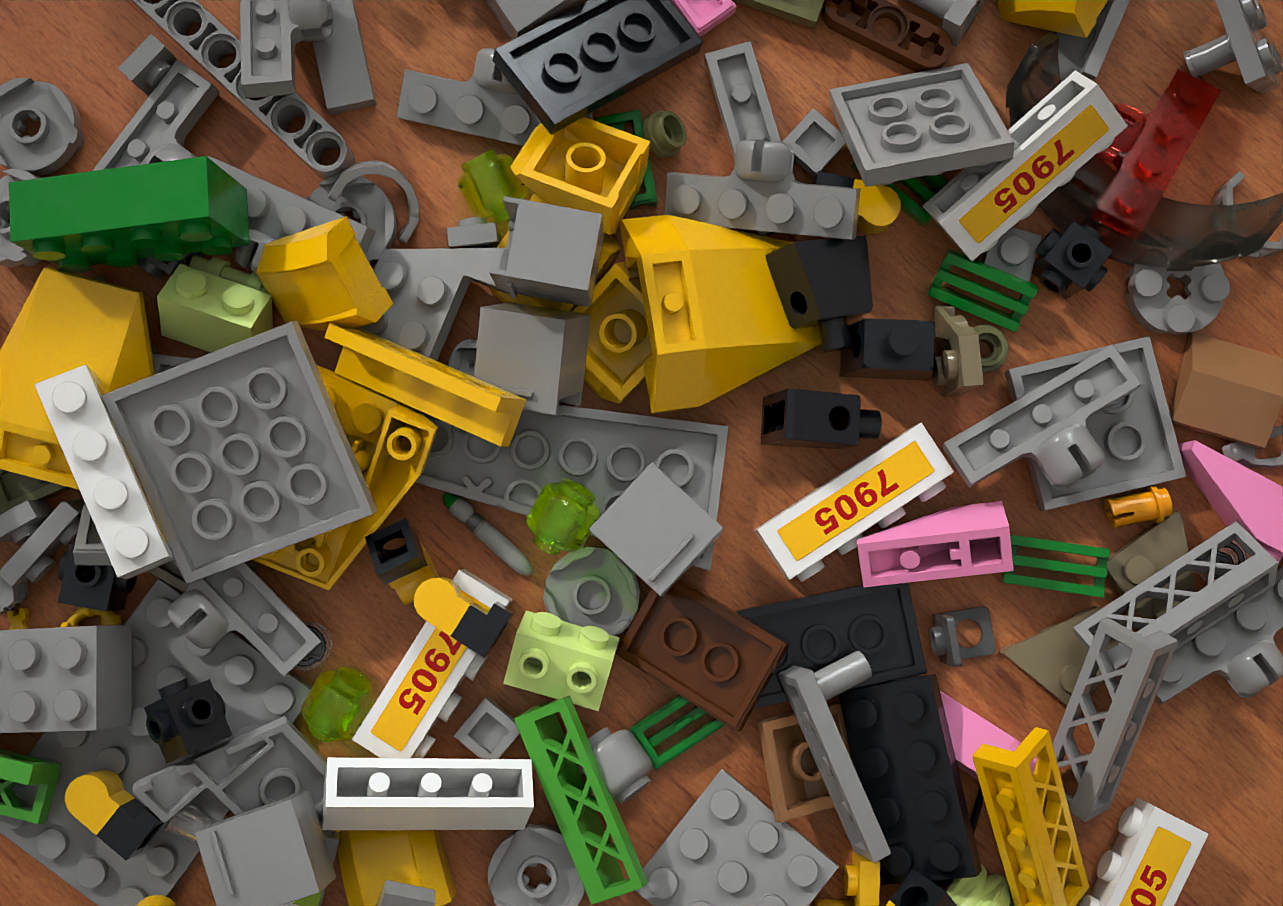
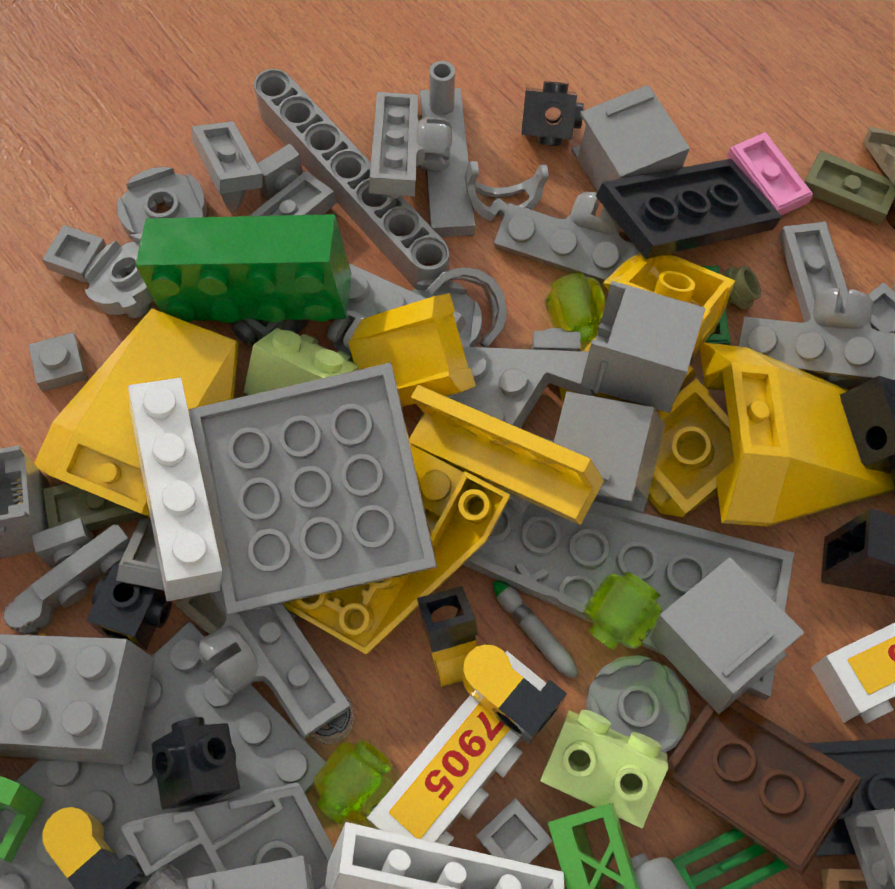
camera: 10 degrees right, 20 degrees down
(85, 64) = (227, 161): none -> light grey tile
(430, 39) = (532, 186): none -> light grey helmet

